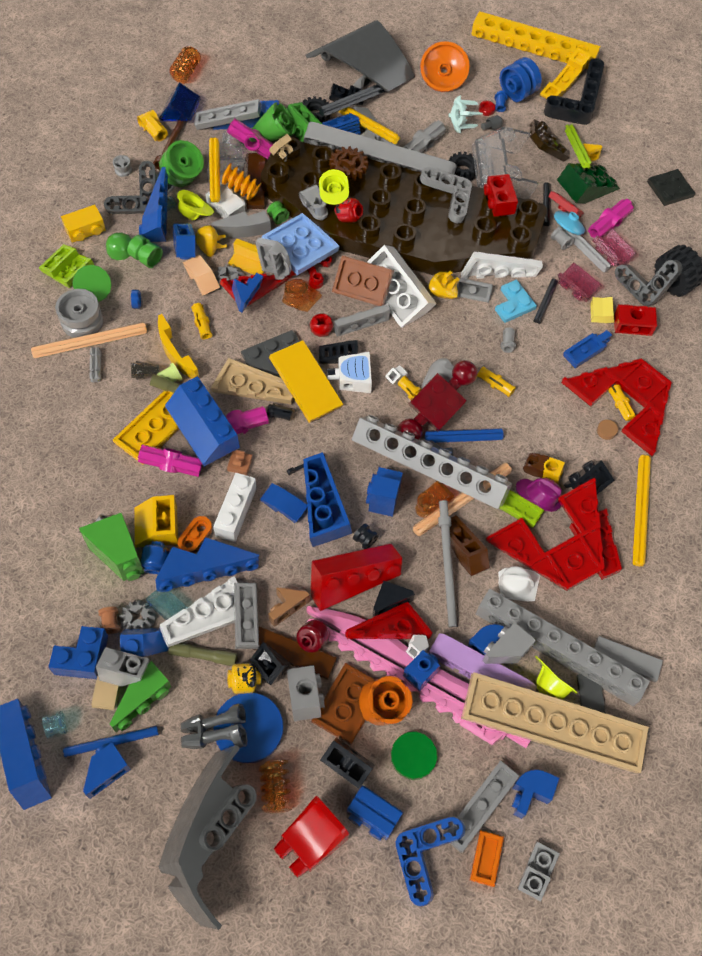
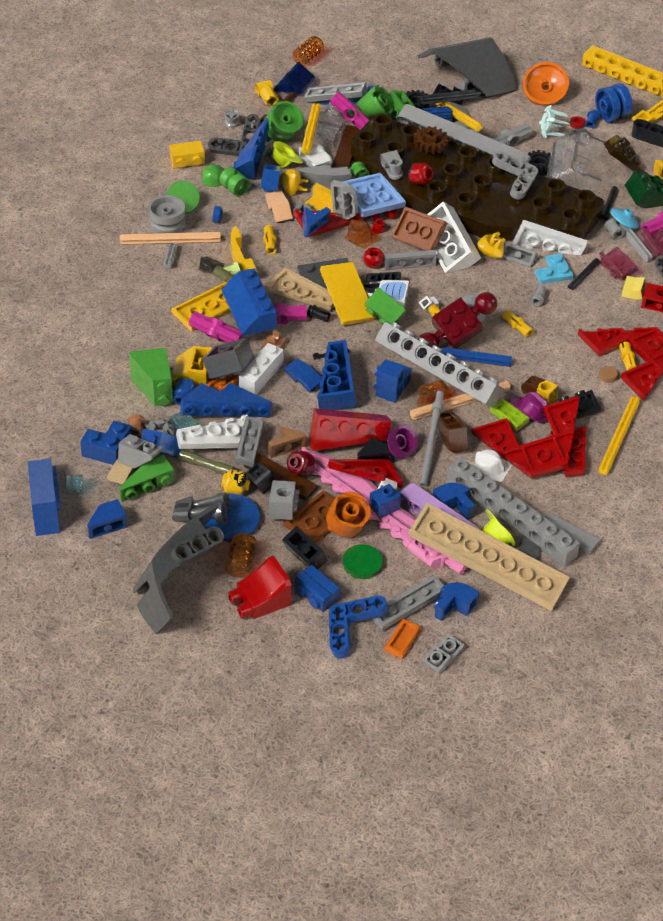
camera: 15 degrees right, 15 degrees down
(64, 265) = (161, 181): lime slope -> none
(118, 739) = (125, 505): blue bar -> none
(196, 508) = (228, 358): none -> dark grey brick
(244, 184) = (331, 143): light orange piece -> none
(281, 145) = (373, 117): tan tile -> none
(333, 187) = (411, 153): neon yellow piece -> none
(353, 395) = (384, 307): none -> bright green brick
(365, 536) = (365, 406): black wheel -> none
(417, 578) = (402, 441): none -> magenta piece
(500, 195) = (560, 181): red brick -> none
(511, 646) = (464, 495): light grey slope -> none
(564, 204) = (624, 203): plate -> none
(578, 146) = (650, 160): lime axle -> none
(587, 348) = (609, 312): blue hinge -> none

